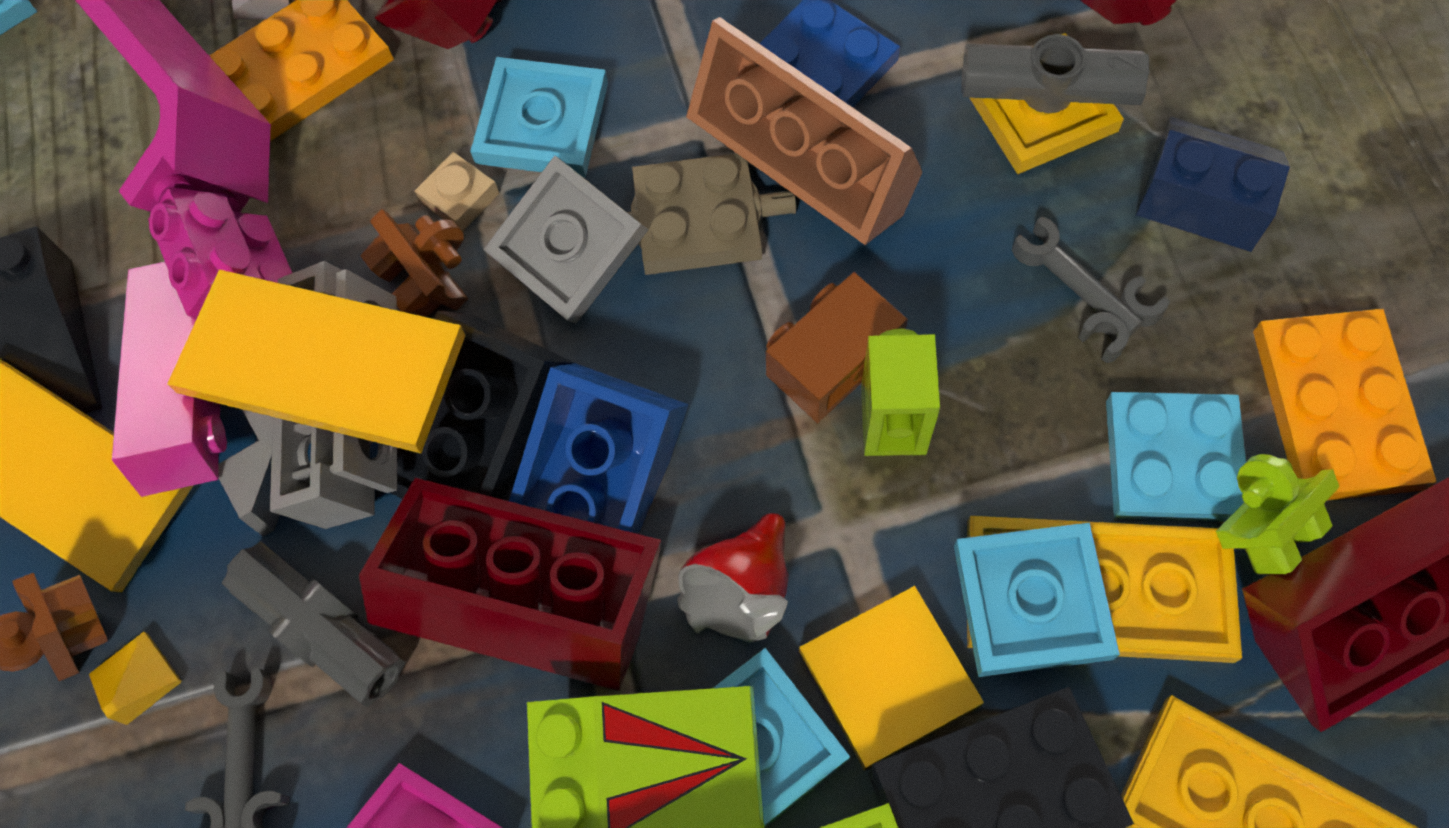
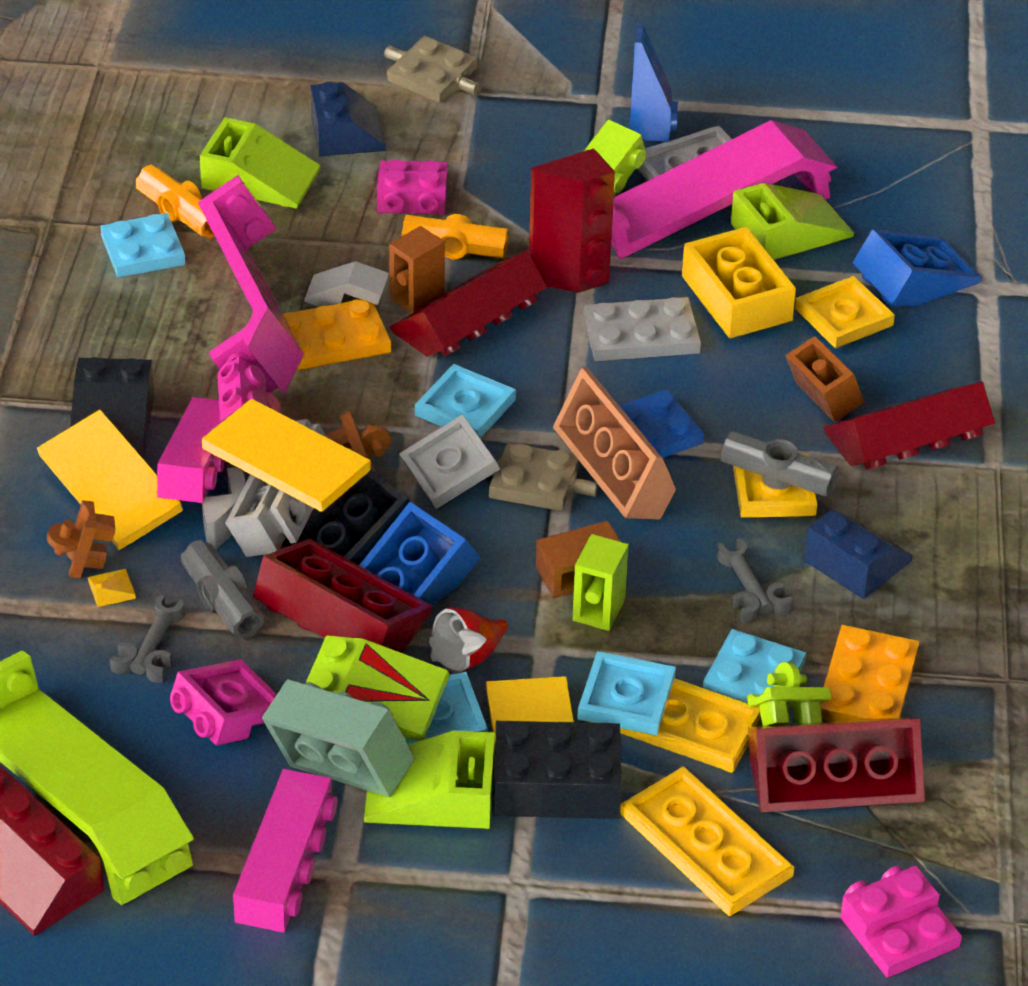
camera: 15 degrees right, 25 degrees down
(457, 191) = (400, 423): tan plate -> none

